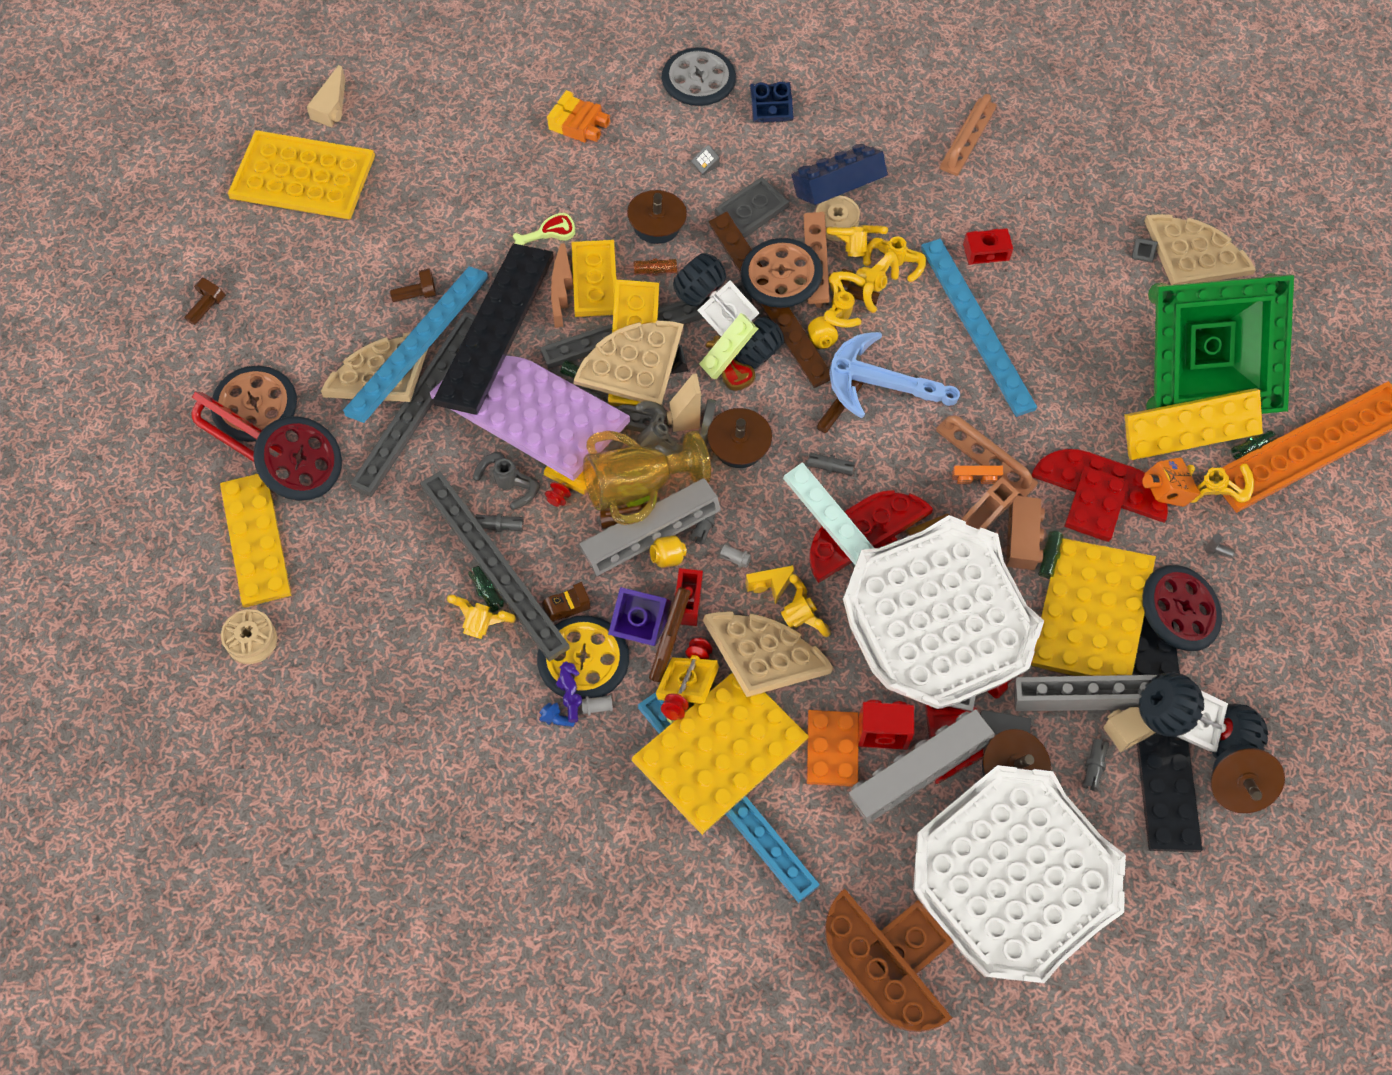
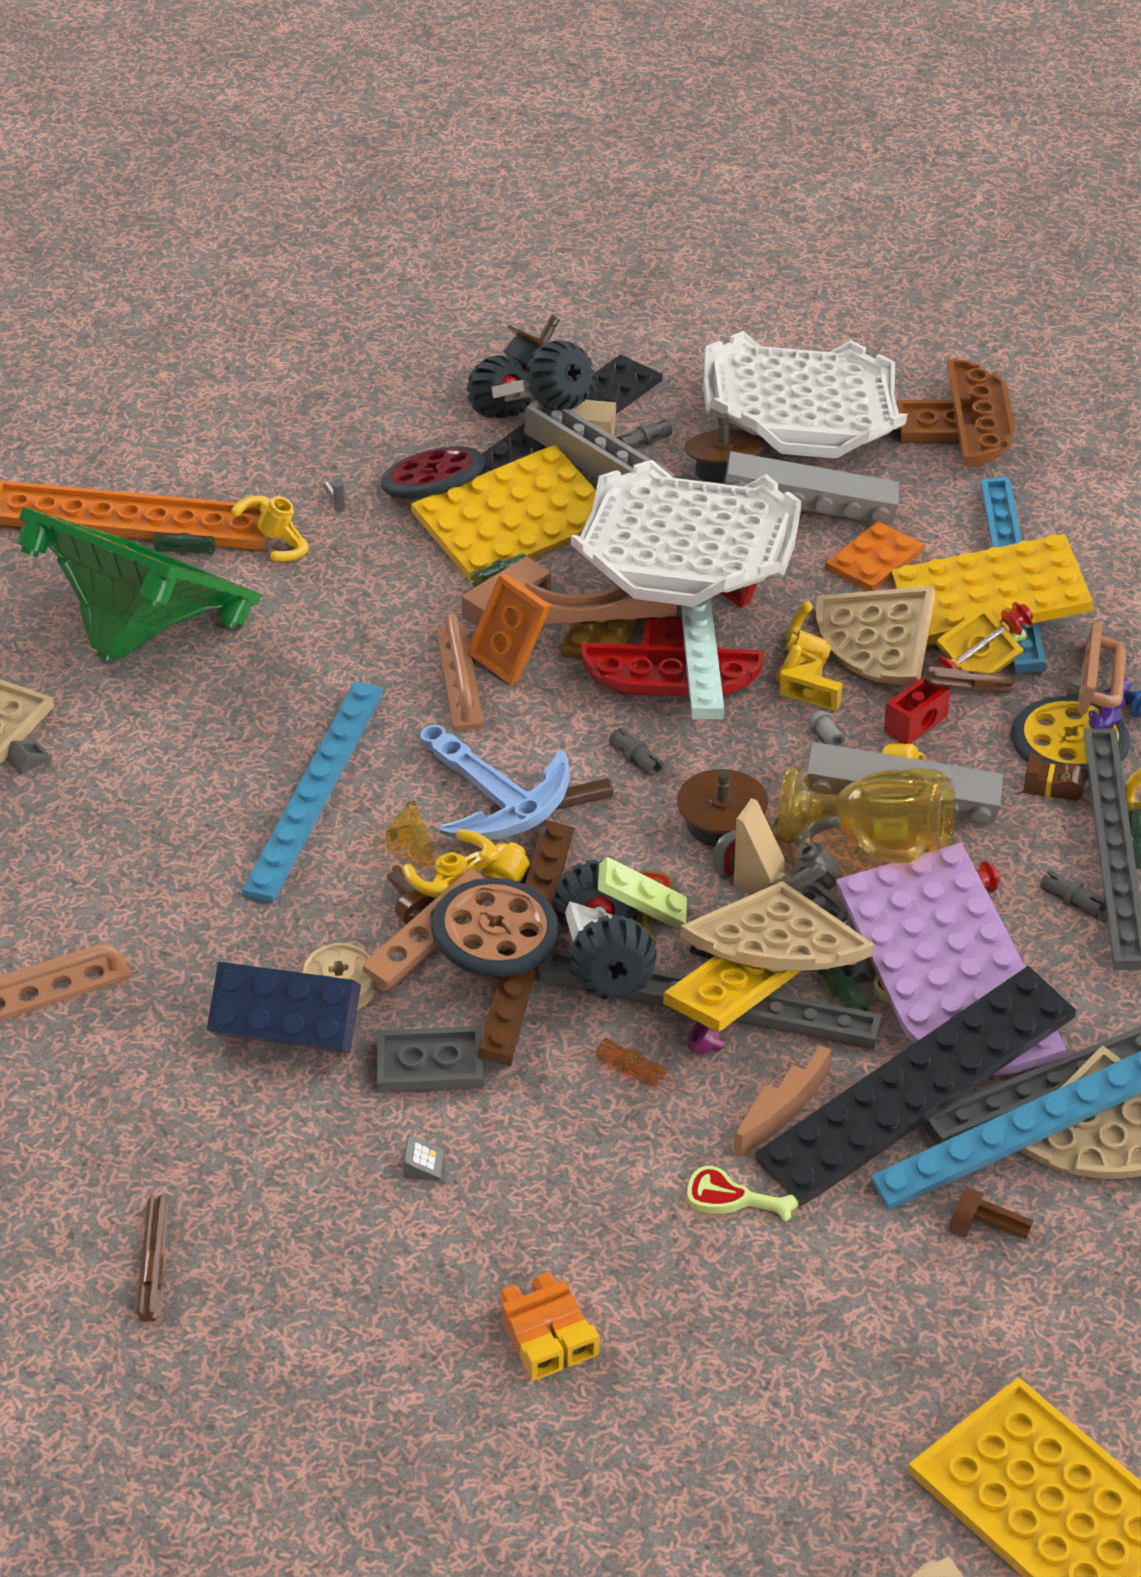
camera: 140 degrees left, 20 degrees down
(507, 477) = (1030, 924): dark grey piece -> none
(593, 277) = (724, 1090): yellow plate -> none
(621, 754) = (1090, 671): none -> nougat piece
(639, 616) = (981, 723): dark purple slope -> none
(656, 216) = (576, 1098): reddish brown piece -> none
(707, 95) = (328, 1328): wedge -> none
(771, 102) = (242, 1182): dark blue slope -> none
(776, 54) = (152, 1259): none -> reddish brown axle
(856, 237) = (349, 928): yellow piece -> none
(877, 279) = (380, 877): yellow piece -> none
(885, 725) = (822, 524): red brick -> none
(892, 324) = (410, 832): none -> clear yellow slope
(903, 254) = (318, 897): yellow piece -> none
(988, 246) = (201, 845): red brick -> none
(1099, 489) = (378, 592): red plate -> none
(1171, 482) = (313, 549): orange torso -> none
(1193, 424) = (228, 568): yellow plate -> none

